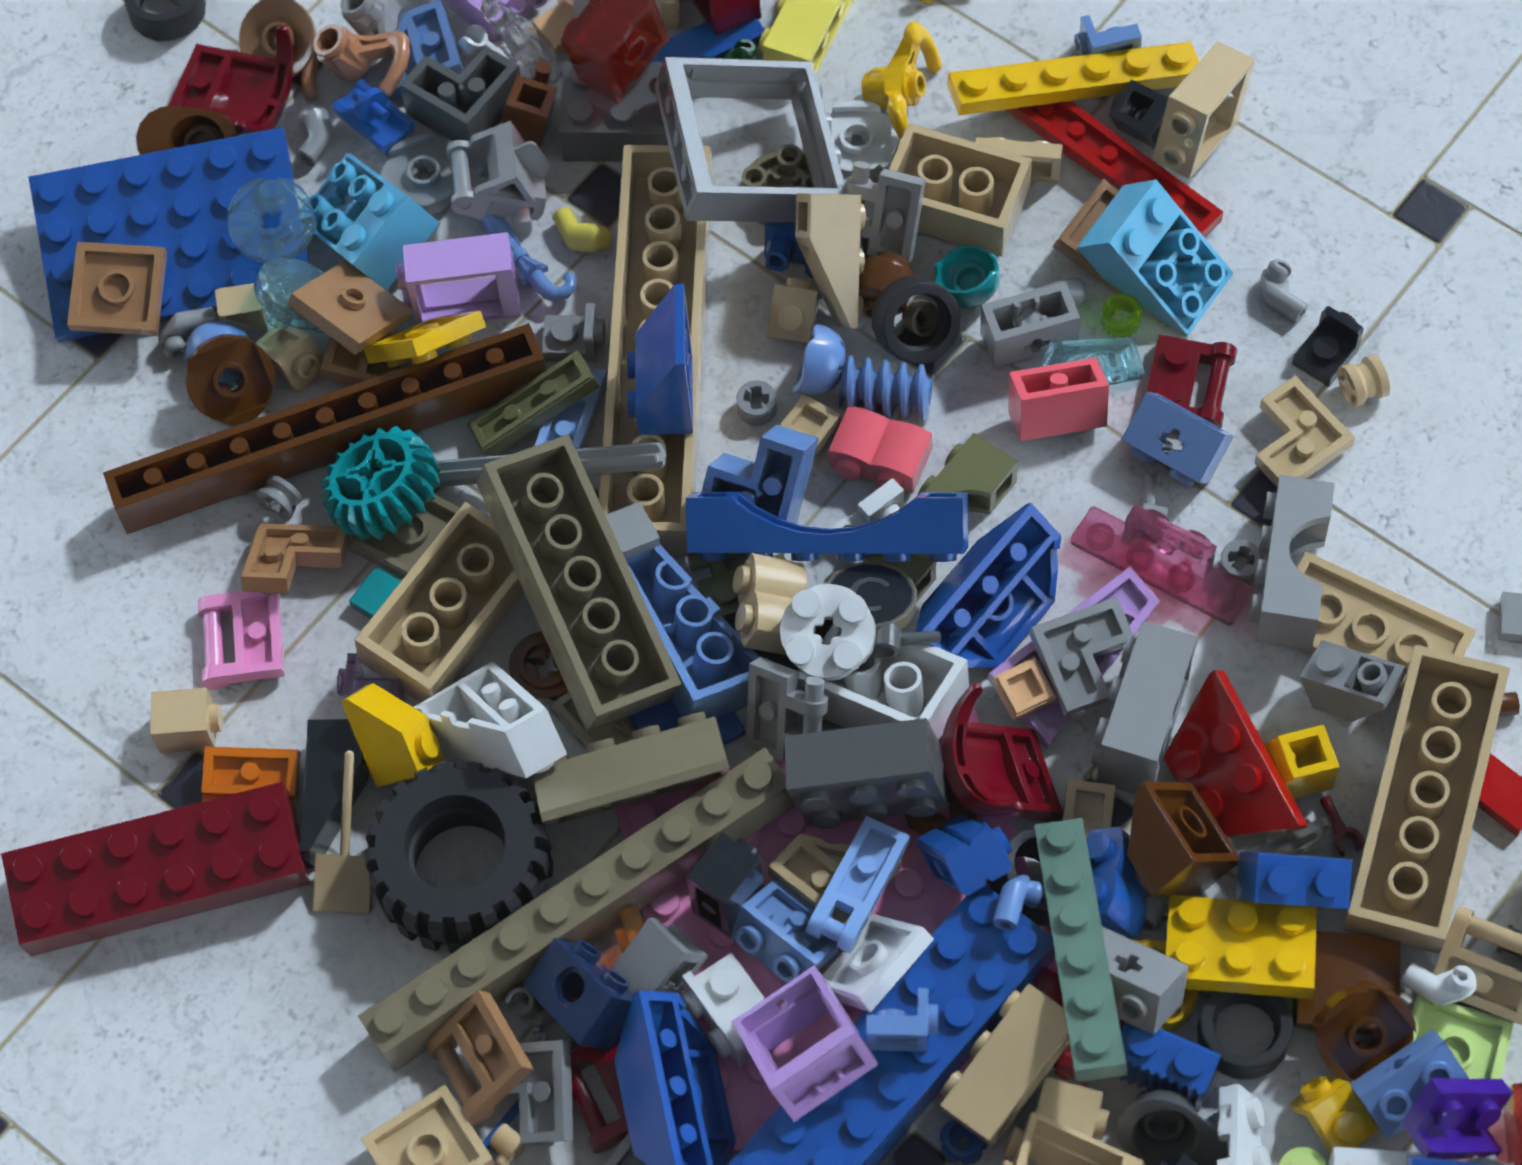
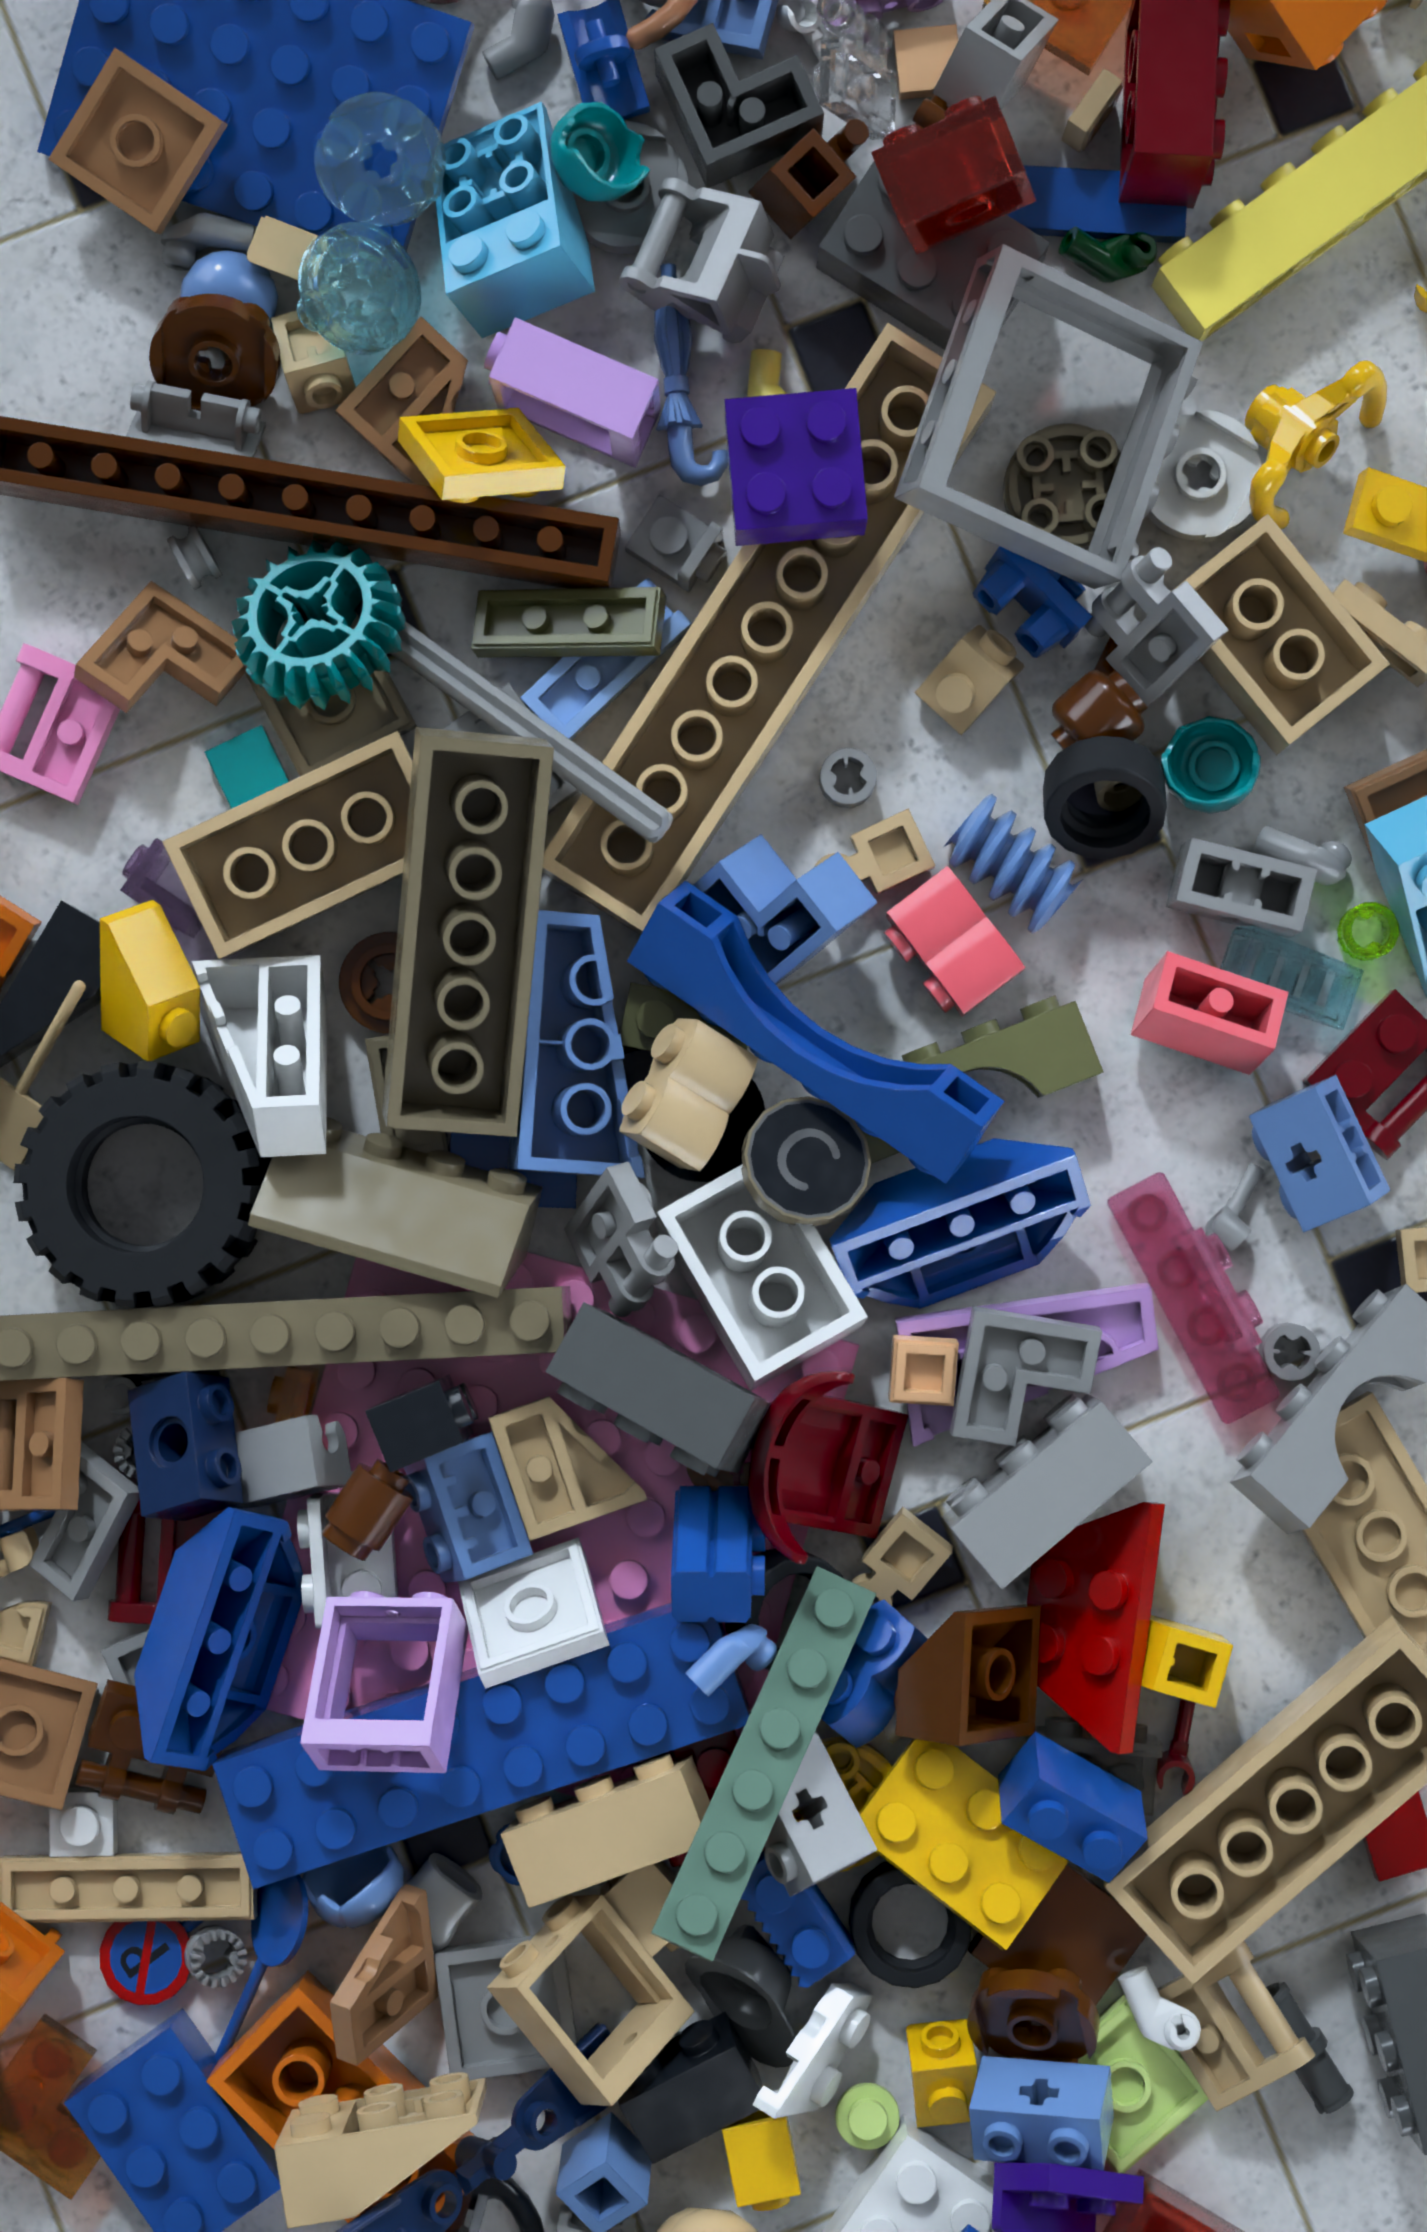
camera: 30 degrees right, 25 degrees up
(218, 418) = (220, 426): none -> light grey hinge
(349, 307) = (410, 353): medium nougat plate -> none
(397, 155) = (597, 153): none -> teal hair
(618, 233) = (795, 467): none -> dark purple brick
(633, 530) = (571, 897): light grey tile -> none
(663, 369) = (729, 714): blue slope -> none
(725, 955) = (367, 1509): none -> reddish brown brick
(811, 609) = (683, 1199): white plate -> none
(821, 363) = (952, 783): medium blue helmet -> none
(830, 242) = (1061, 632): tan slope -> none
(858, 883) = (574, 1510): light blue plate -> none
(876, 506) = (903, 1025): white plate -> none
(890, 638) = (791, 1236): dark grey hand -> none
(899, 1032) = (494, 1741): medium blue bracket -> none
(1349, 681) = (1308, 1605): light grey slope -> none

